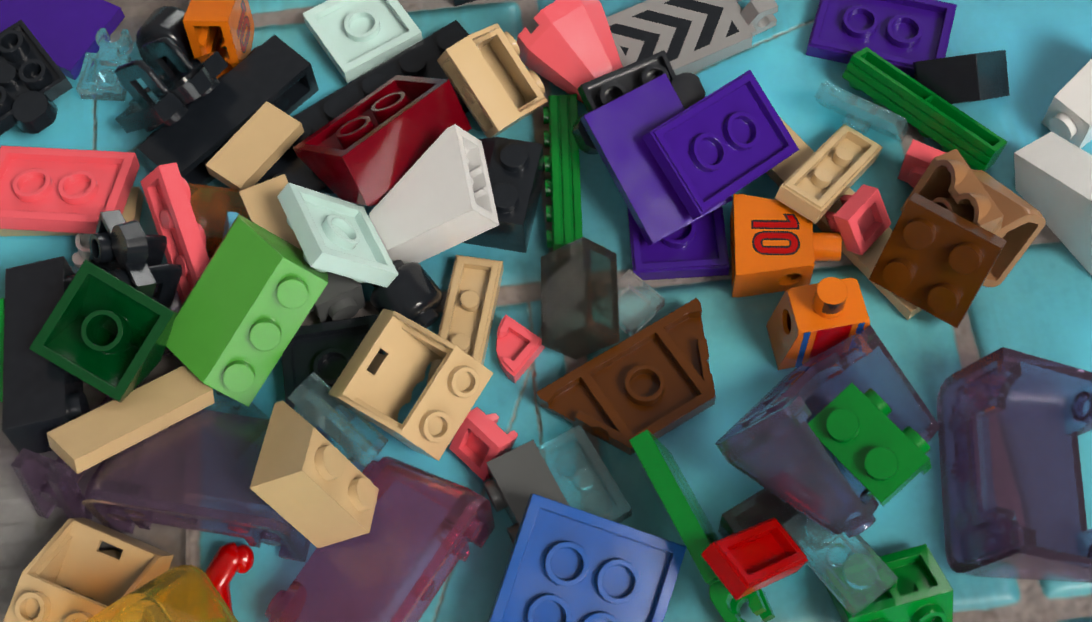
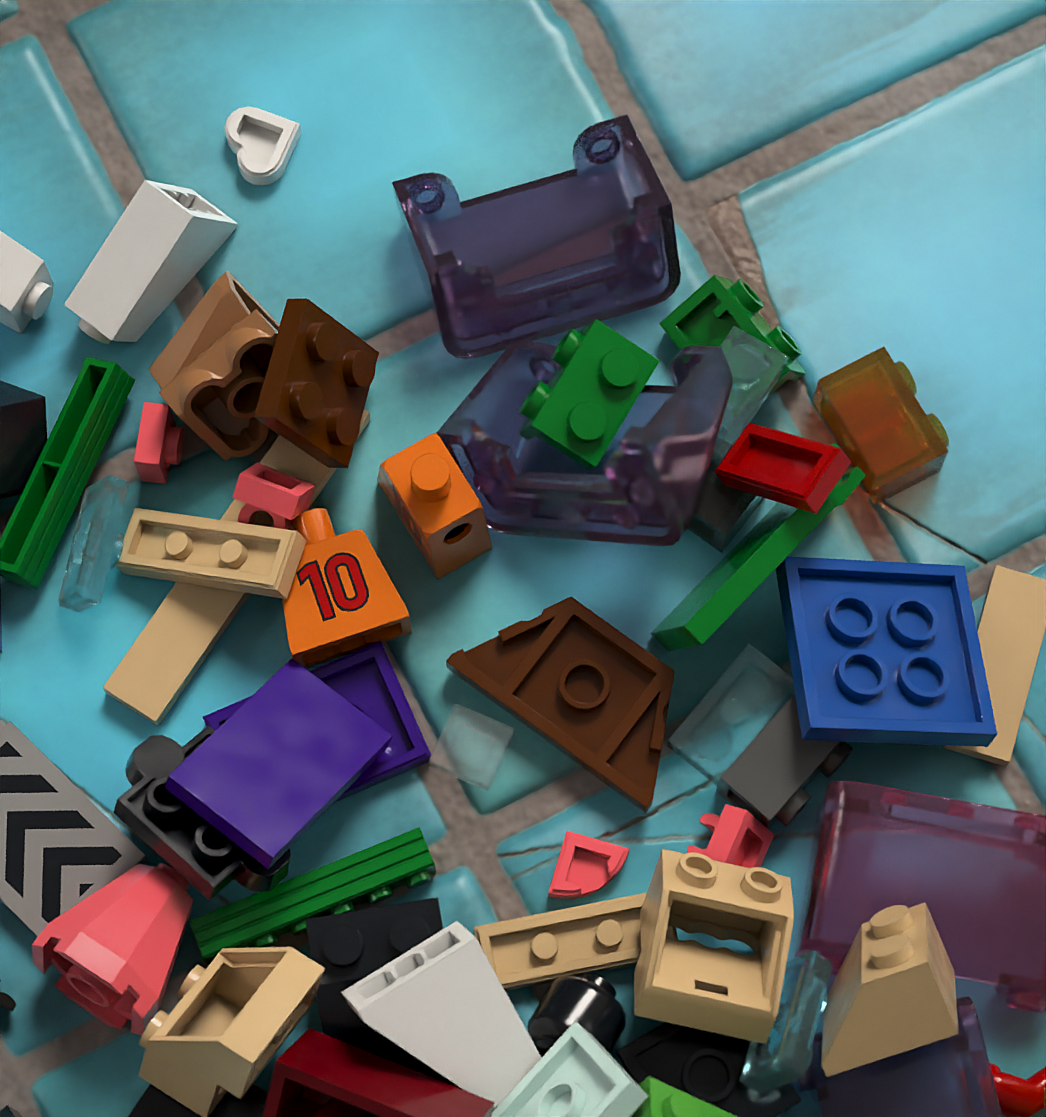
camera: 115 degrees left, 10 degrees up
(579, 299) = (505, 798): clear smoke brick -> none
(720, 144) = (231, 686): dark purple tile -> none

